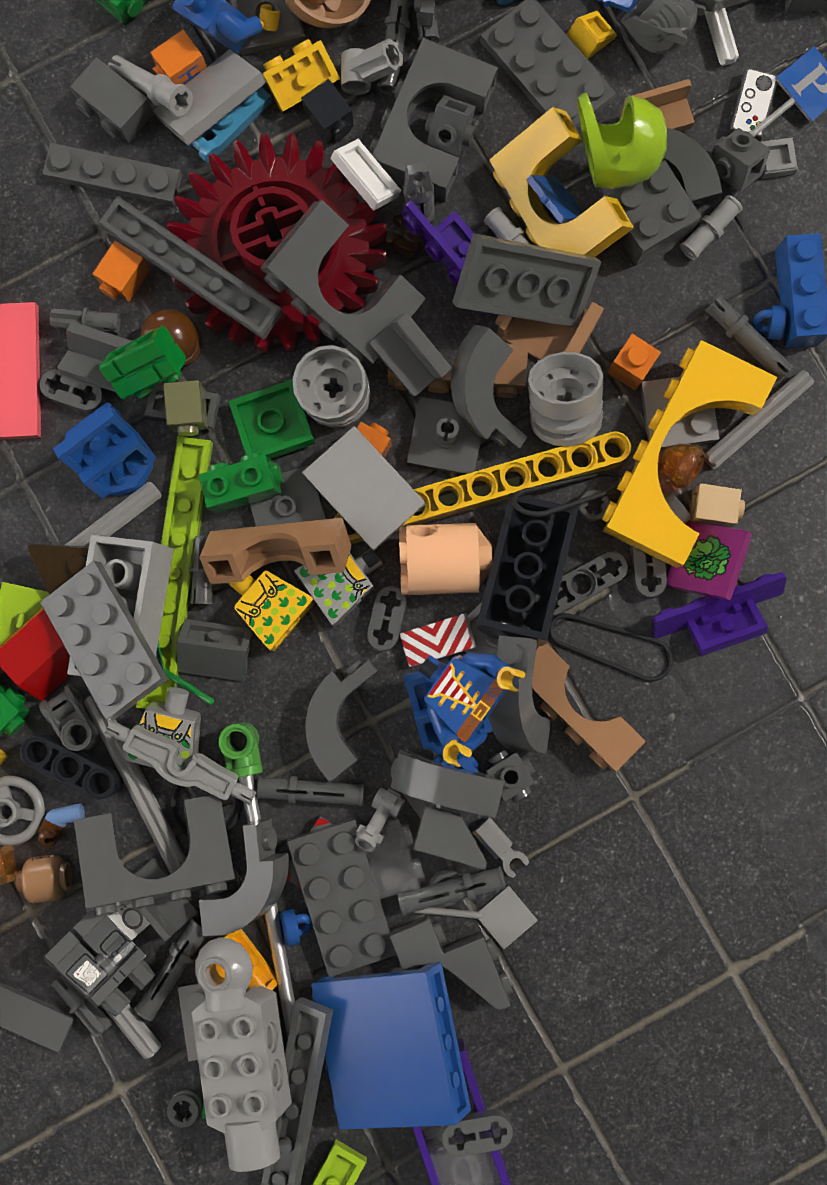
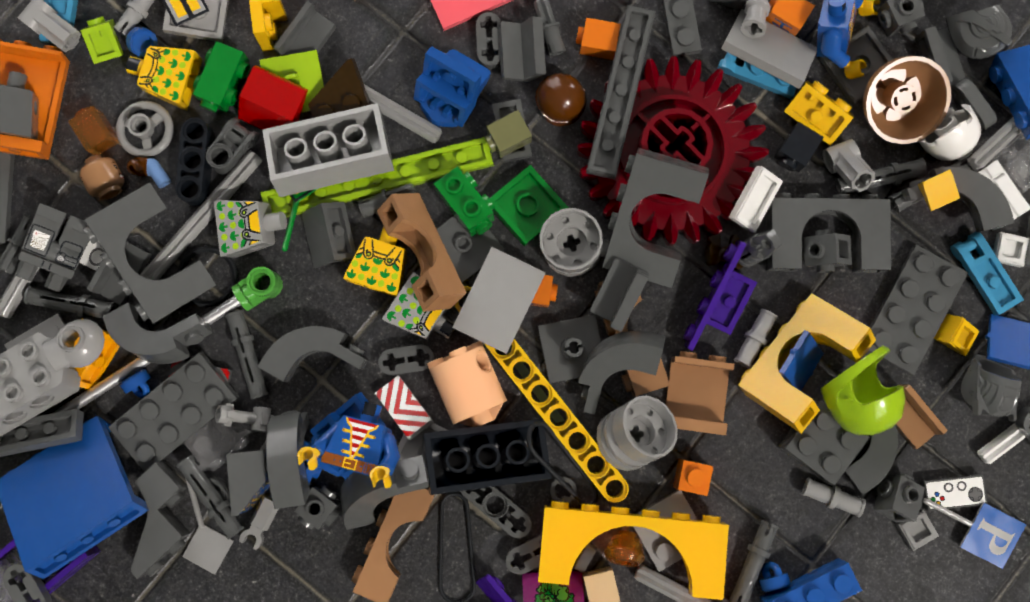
camera: 65 degrees right, 0 degrees up
(103, 640) = (296, 147): plate -> none
(143, 363) = (528, 87): green brick -> none
(162, 754) = (226, 262): light grey piece -> none
(525, 281) = (717, 363): dark grey plate -> none

